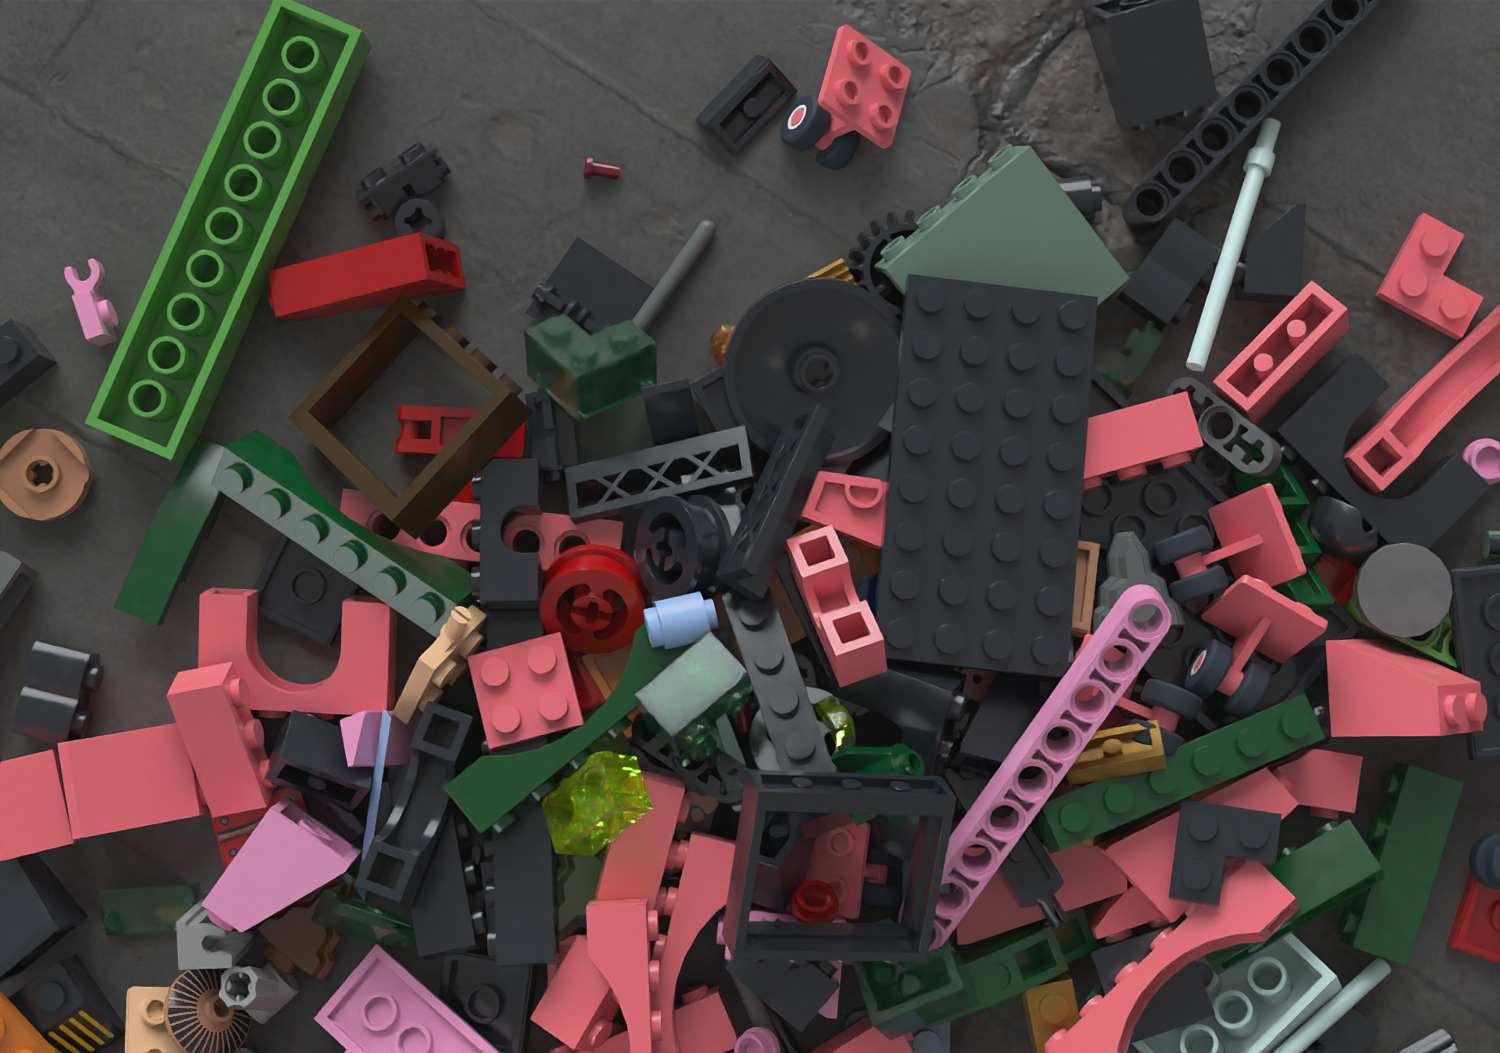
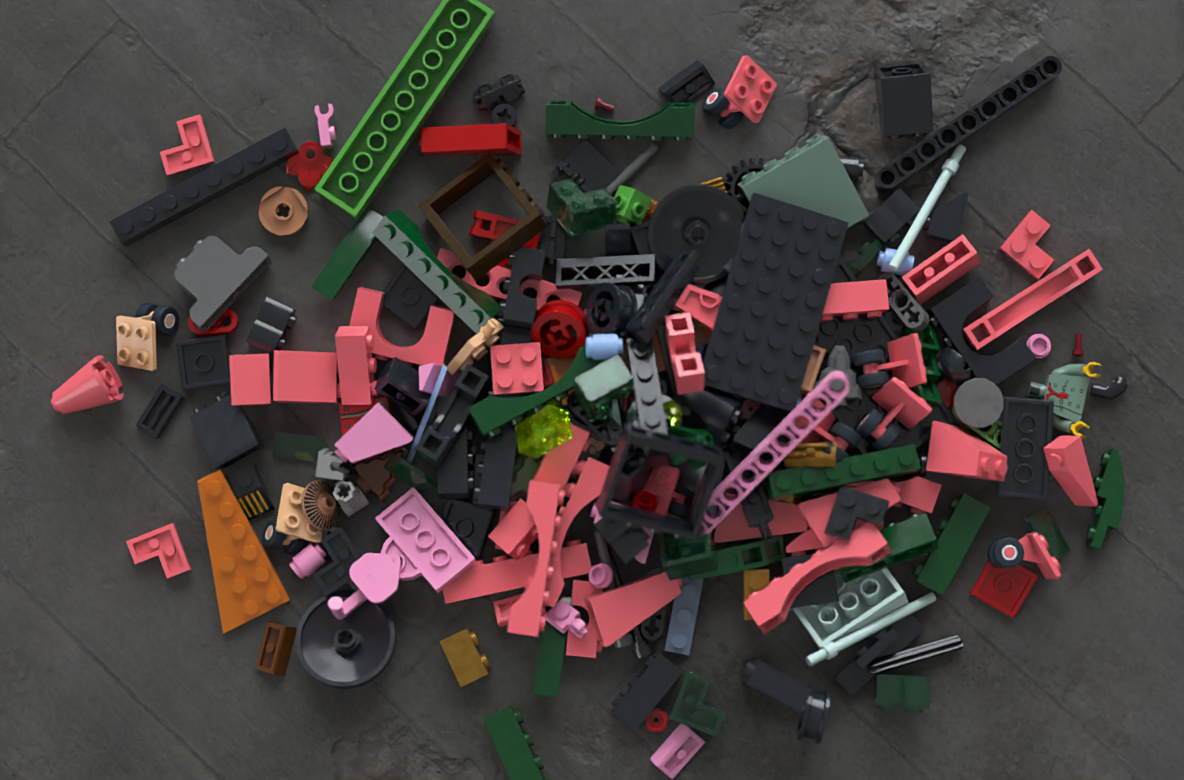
camera: 10 degrees right, 0 degrees up
(71, 385) = (308, 168): none -> red plate
(538, 204) = (671, 121): none -> dark green arch
(683, 343) = (630, 205): none -> bright green brick
(1175, 351) = (884, 259): none -> light blue brick

